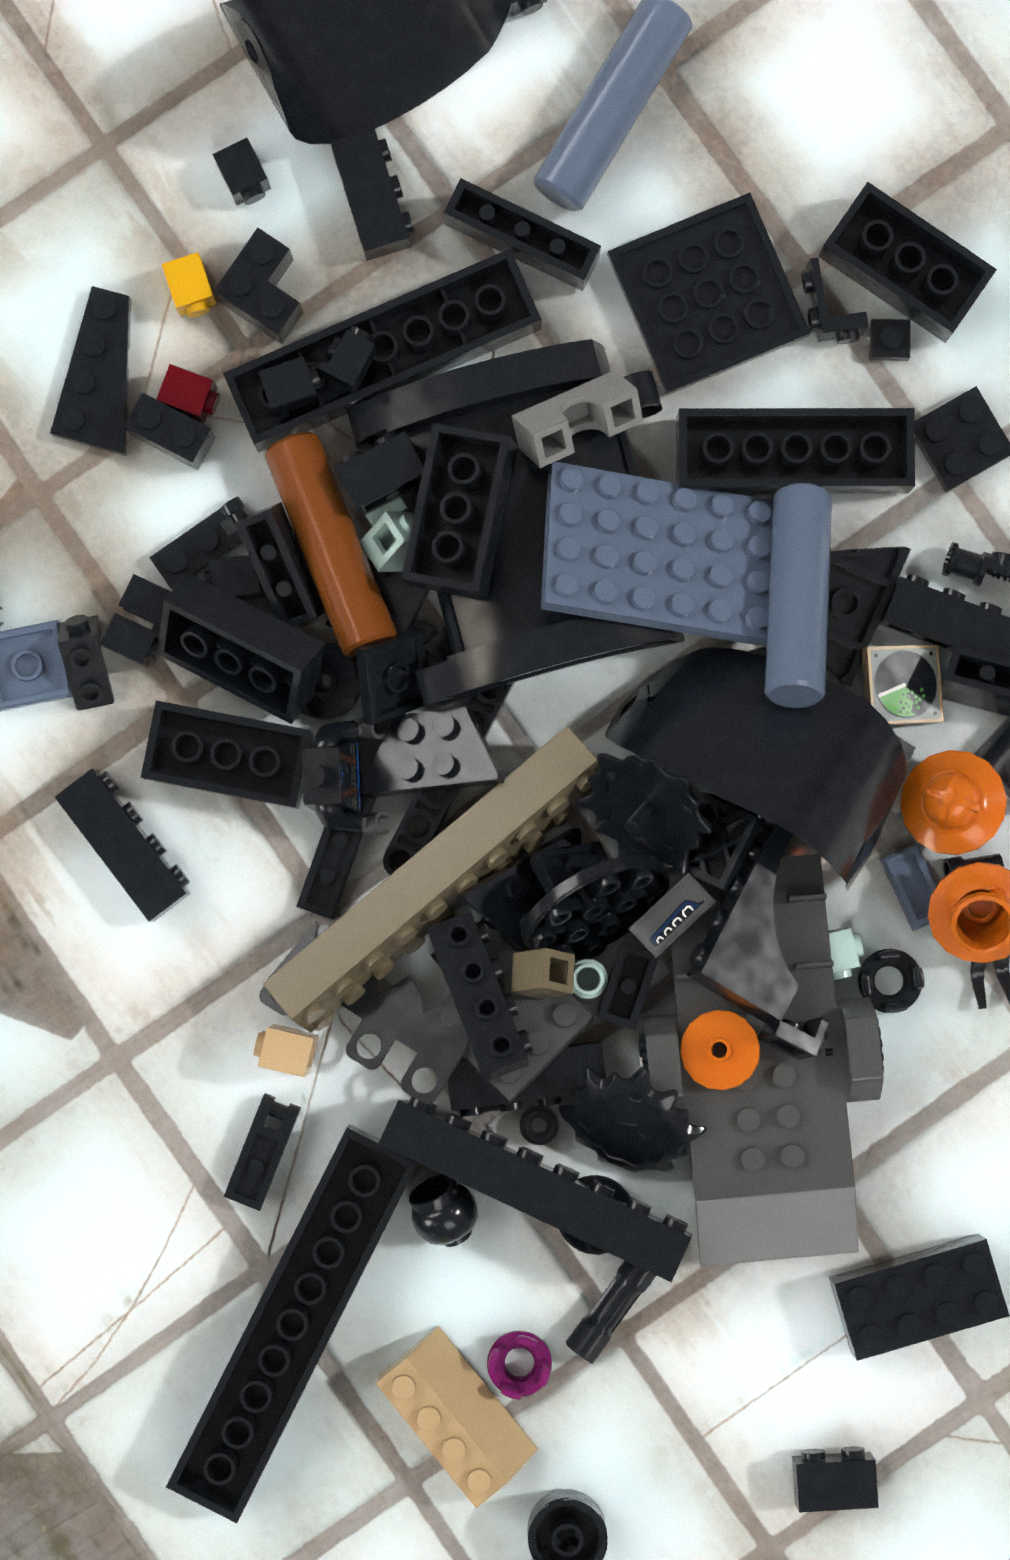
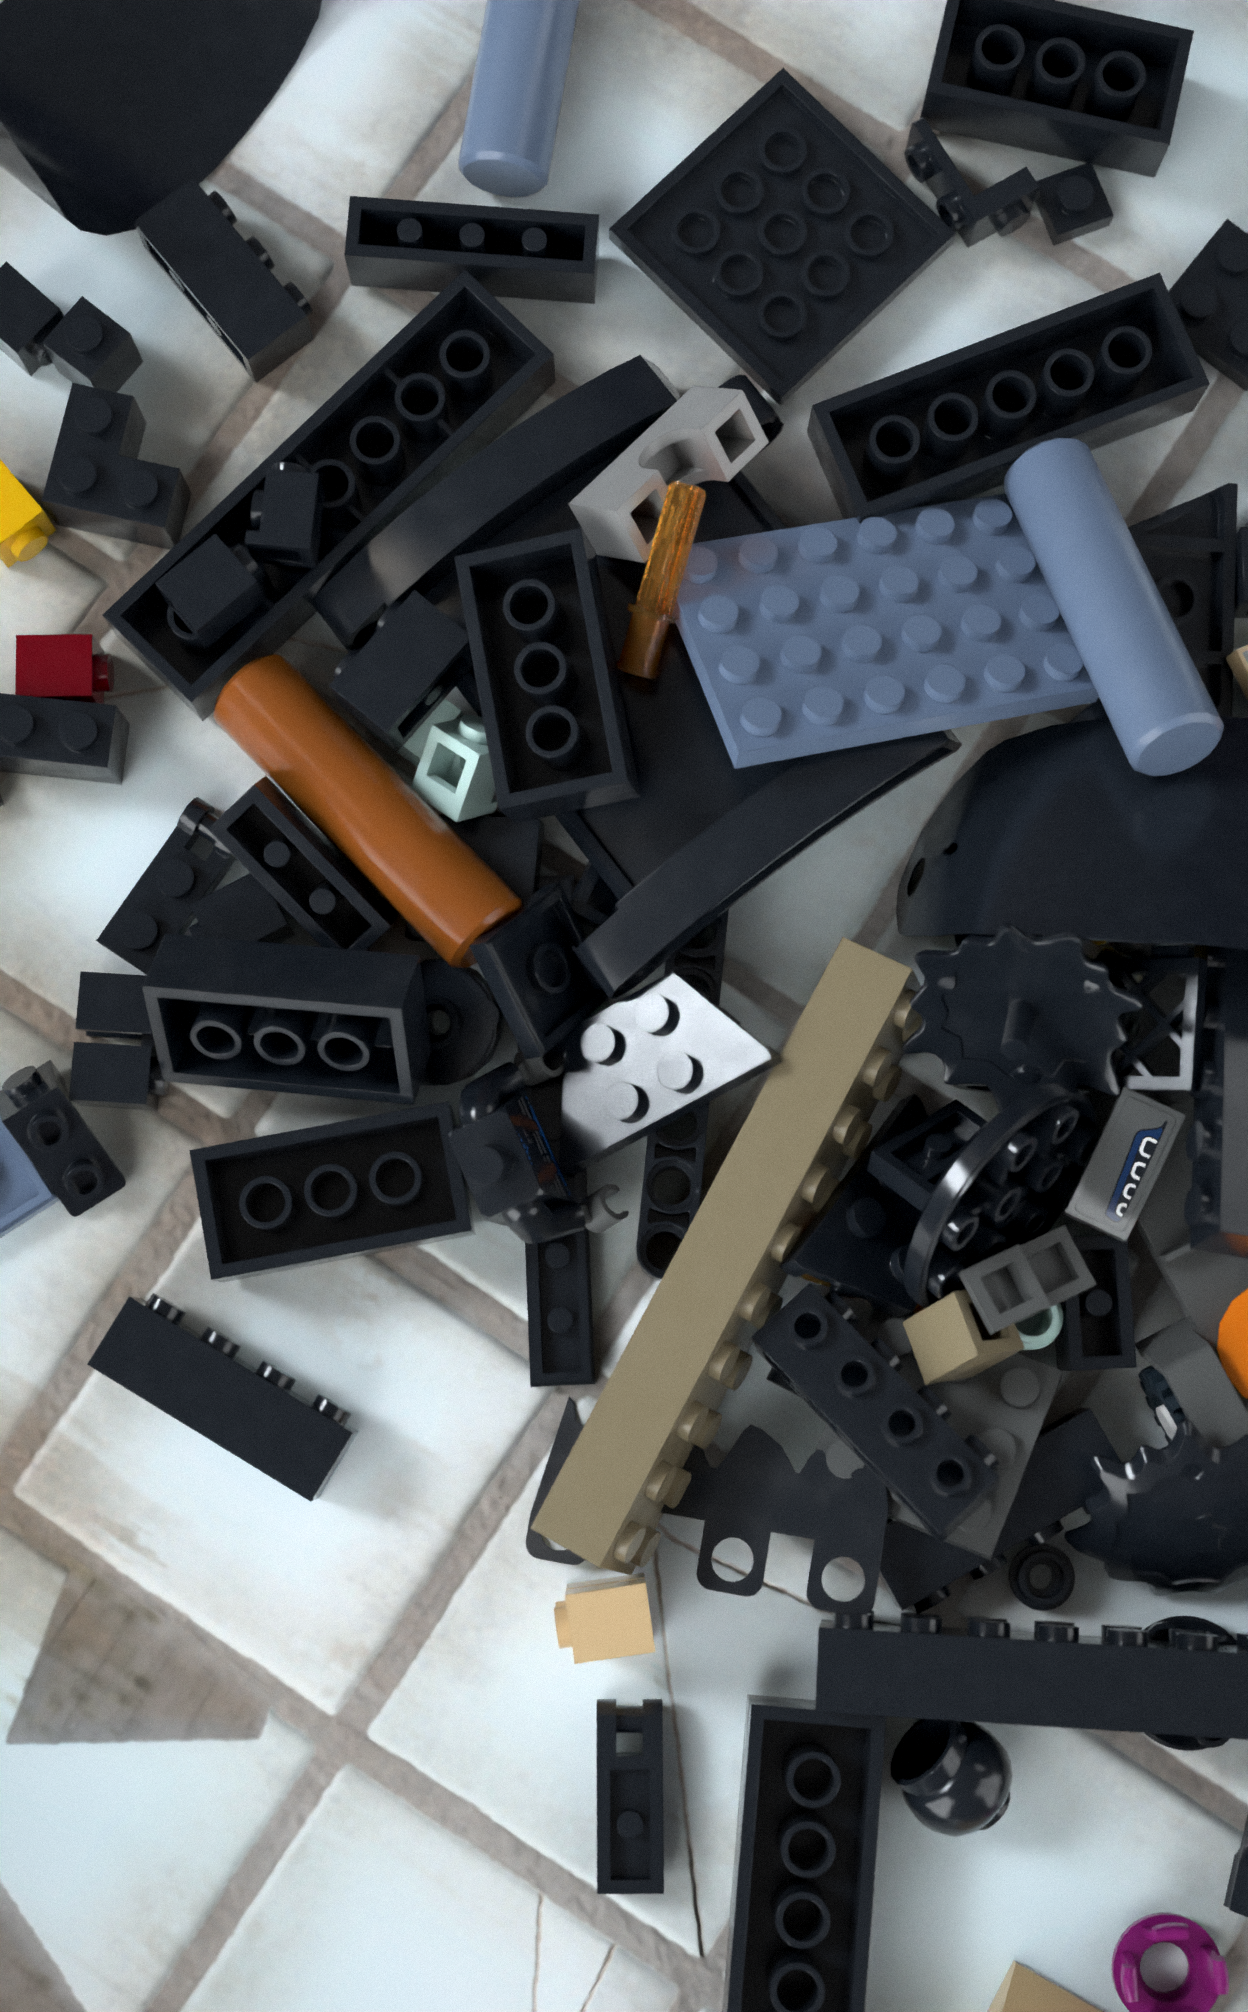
camera: 25 degrees left, 5 degrees down
(277, 208) = (92, 348): none -> black brick
(545, 482) = (662, 580): none -> clear orange axle
(590, 957) = (1027, 1279): none -> dark grey slope

